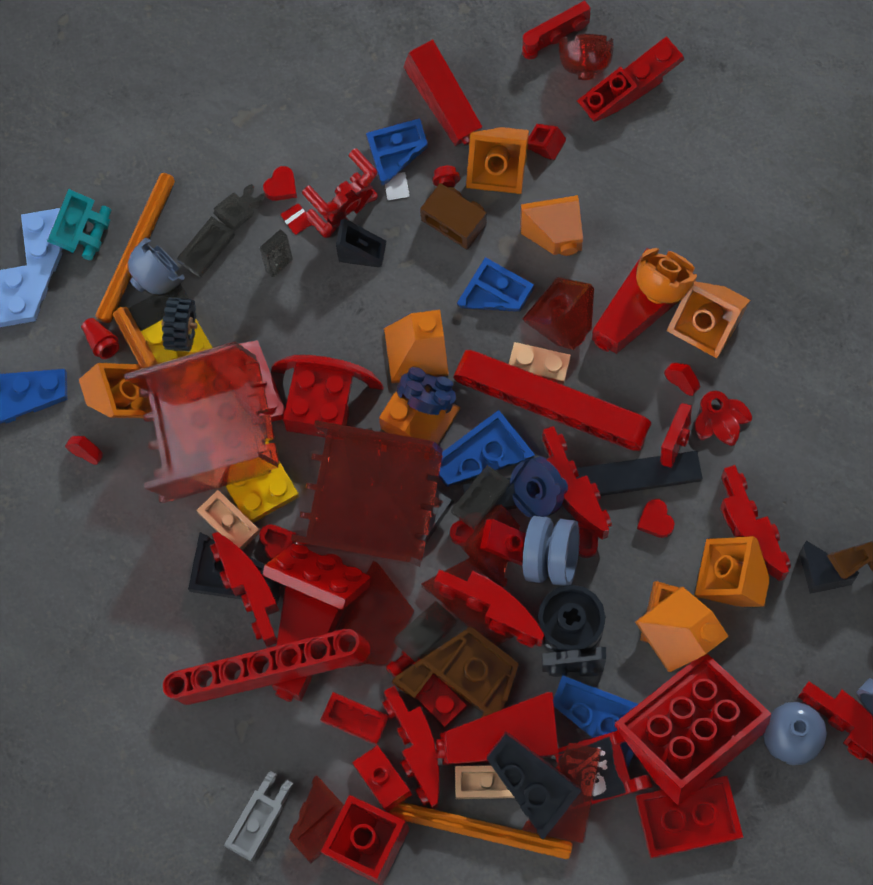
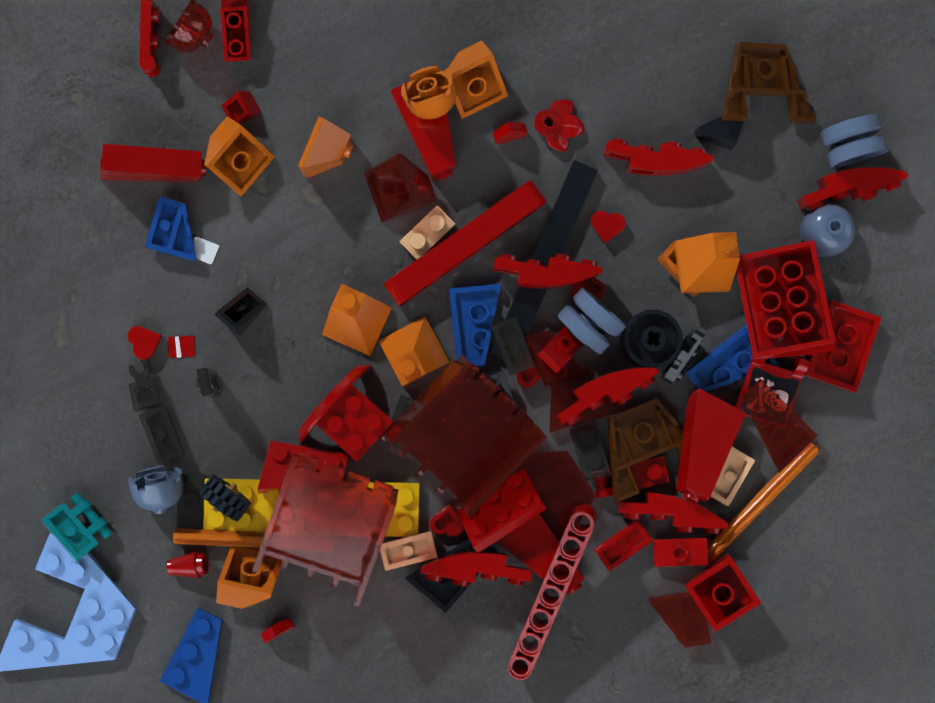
camera: 70 degrees left, 15 degrees up
(142, 230) = (121, 488): orange axle -> none
(257, 819) = (655, 662): light grey hinge -> none
(347, 199) = (199, 299): red plate -> none
(426, 391) = (389, 337): dark blue plate -> none
(446, 175) = (224, 207): red plate -> none
(454, 215) = (262, 221): reddish brown brick -> none
(495, 289) = (345, 227): blue wing -> none
(534, 783) = (760, 444): black wing -> none
(551, 487) = (527, 290): dark blue plate -> none
(677, 435) = (556, 166): red plate -> none
(733, 572) = (684, 196): orange slope -> none

